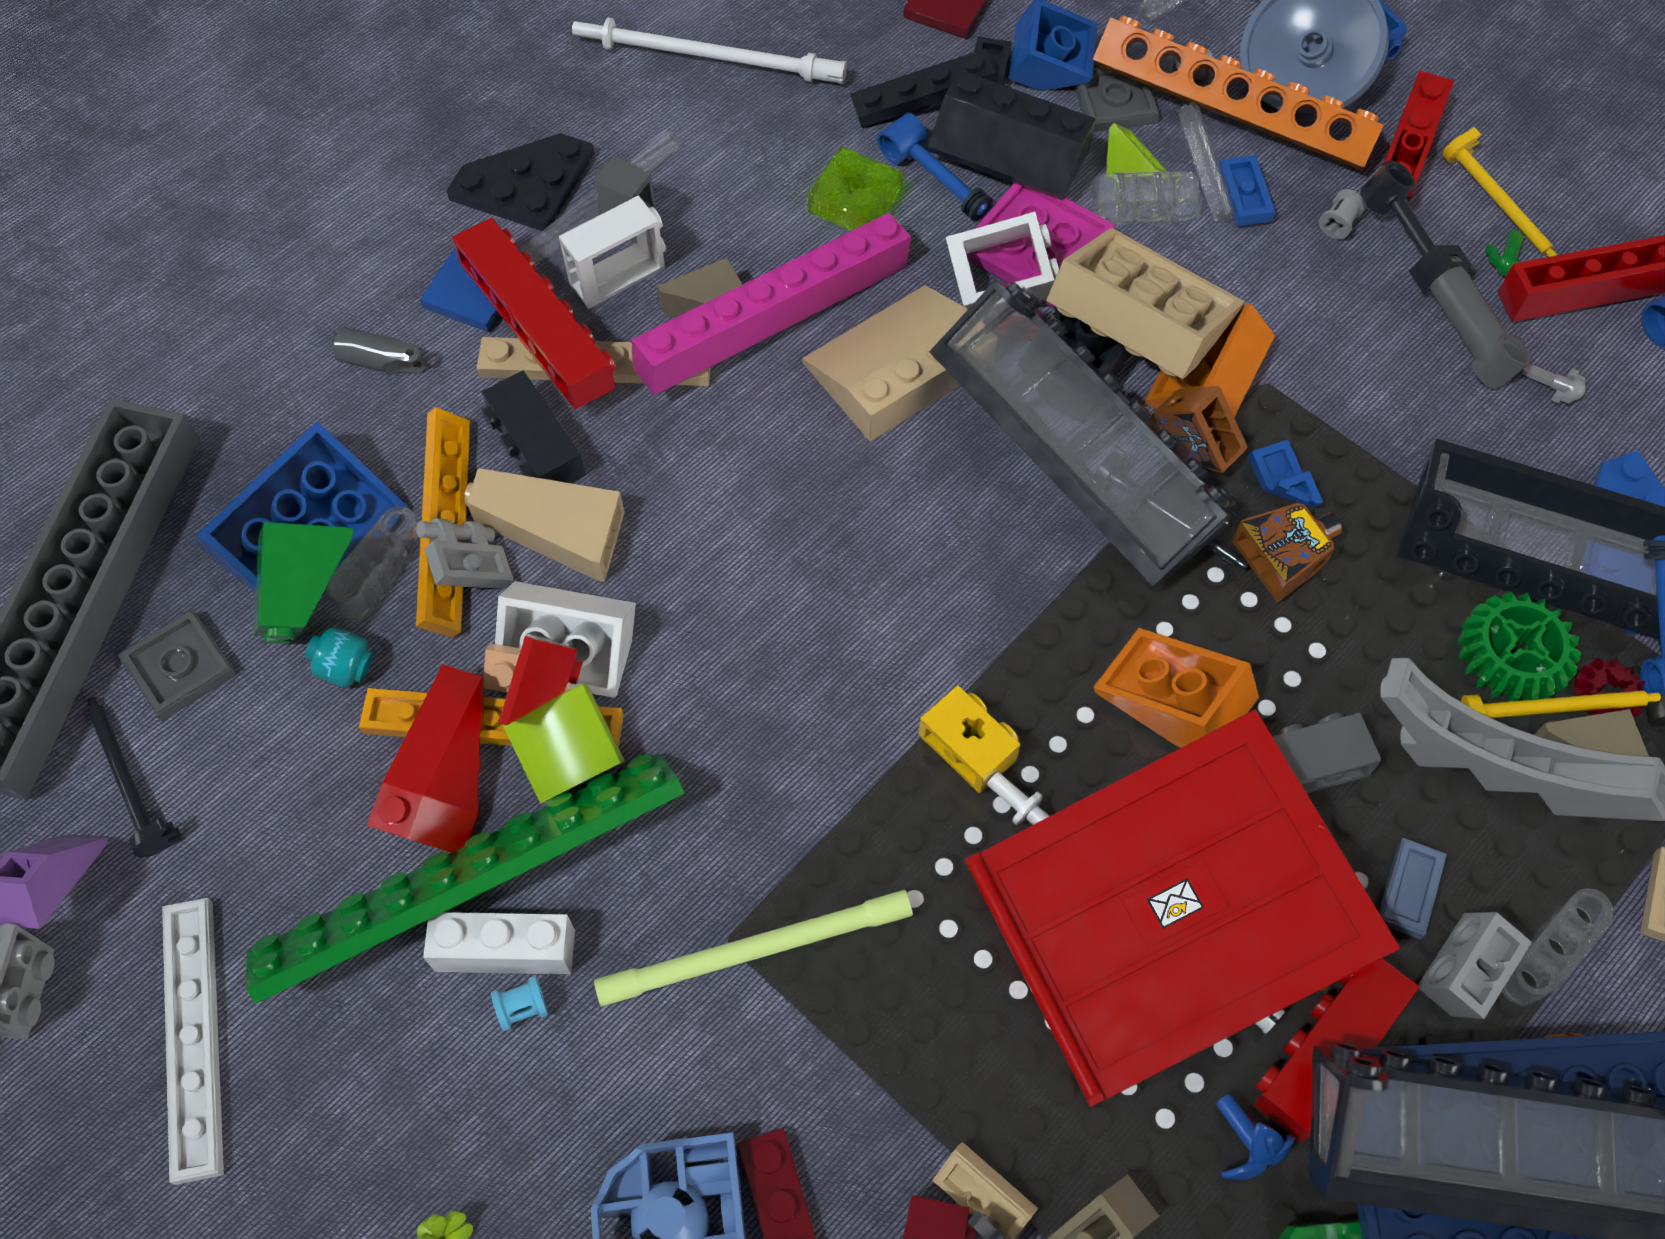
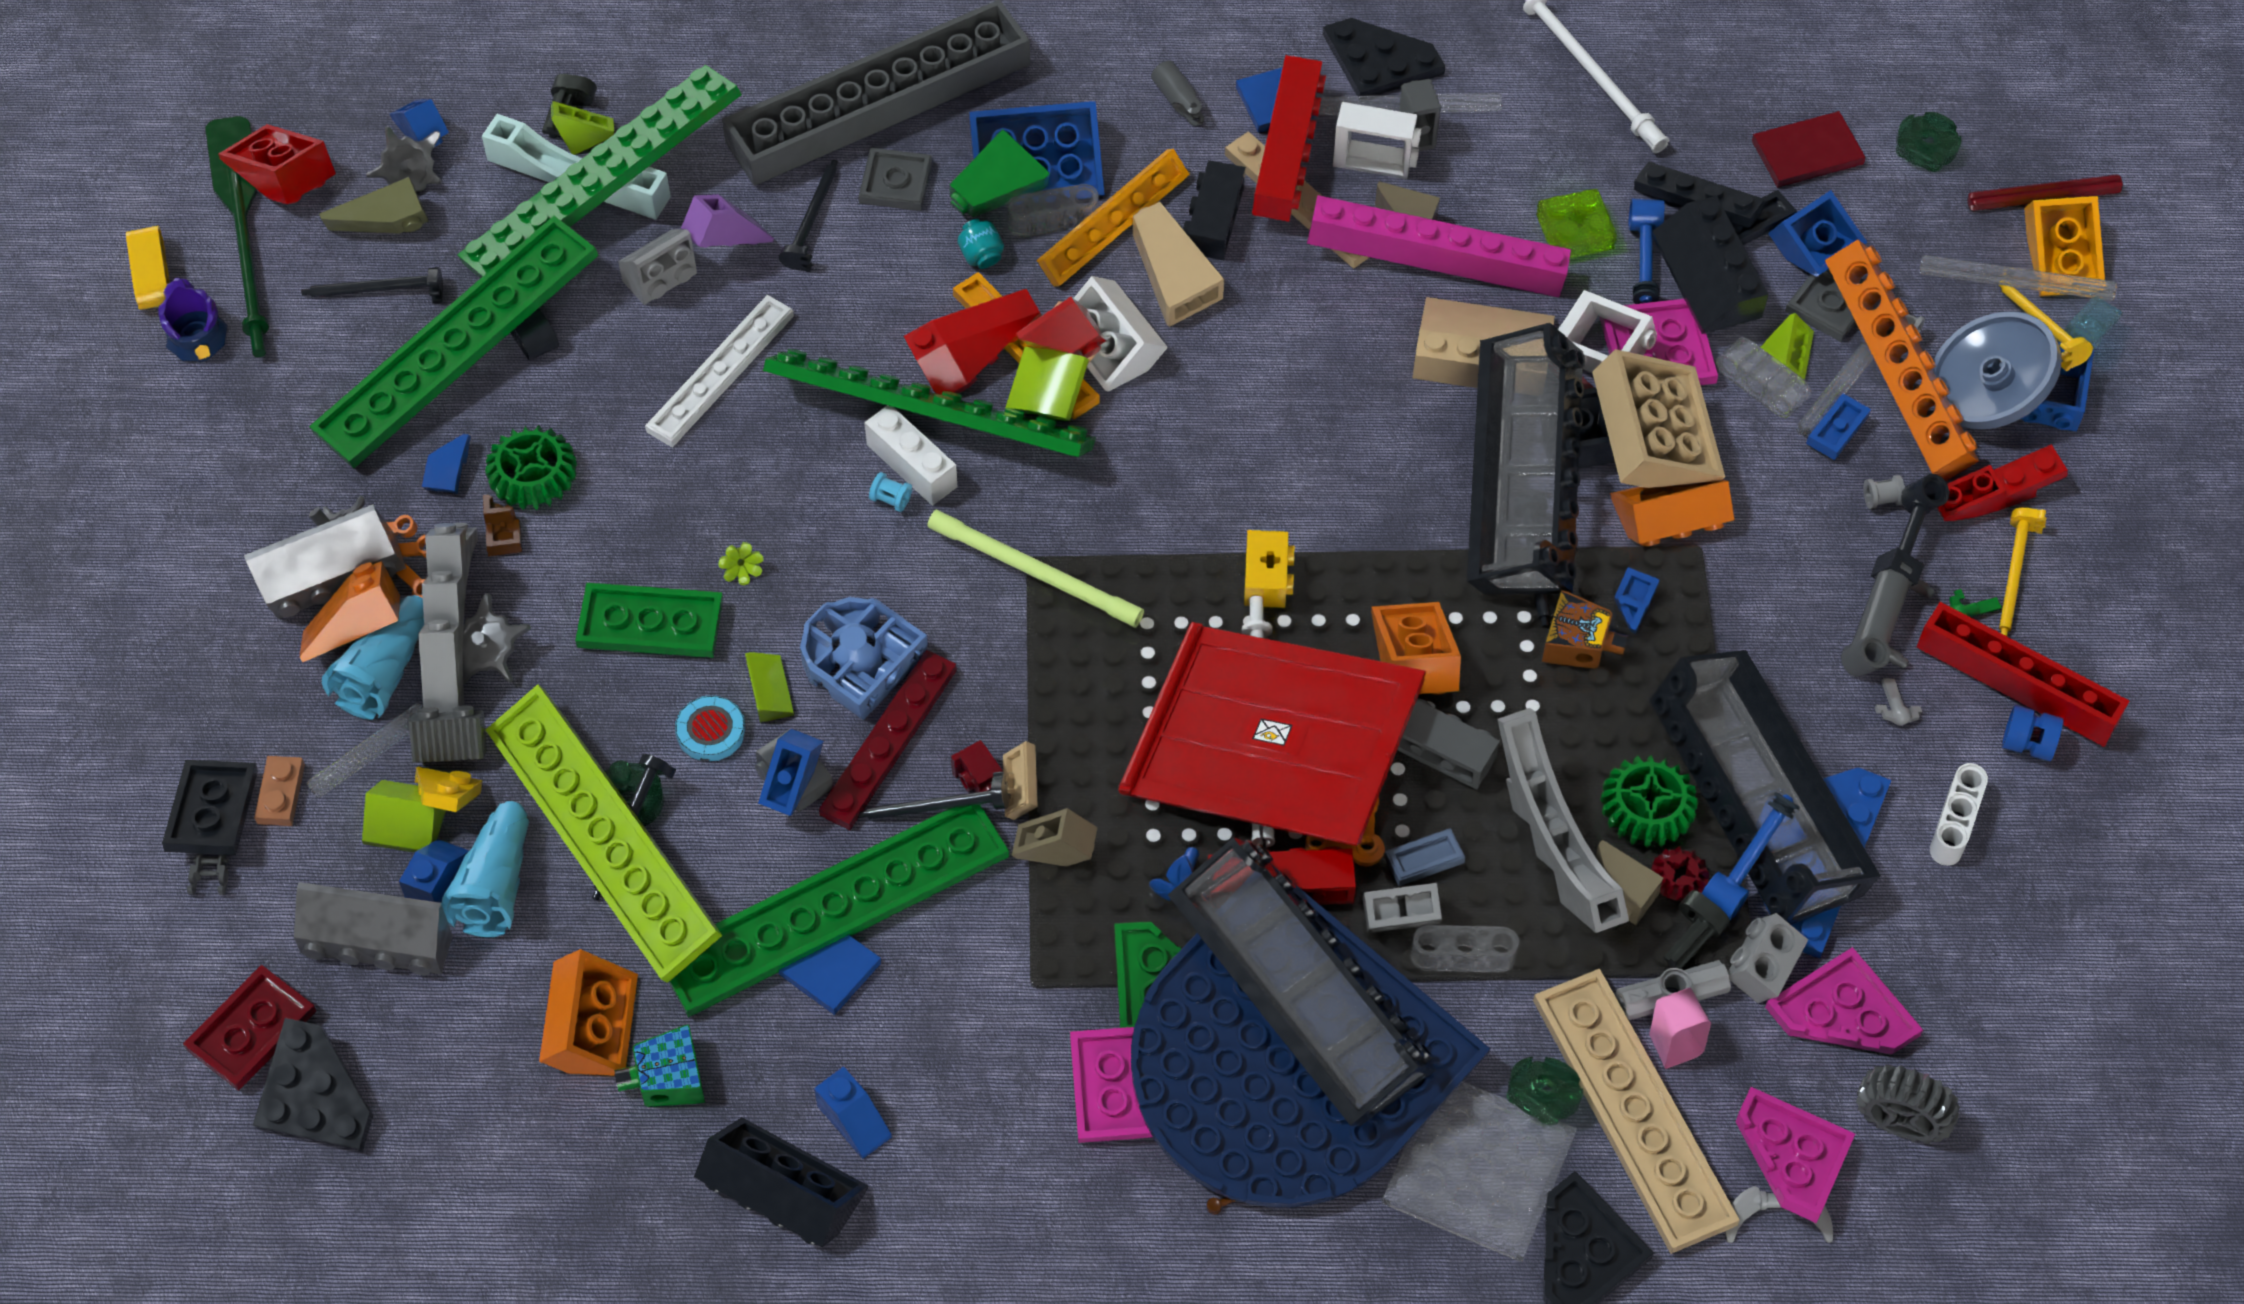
camera: 45 degrees right, 5 degrees down
(465, 563) = (1097, 248): light grey plate -> none
(1202, 426) = (1608, 523): dark orange torso -> none
(1560, 704) = (1579, 809): yellow piece -> none

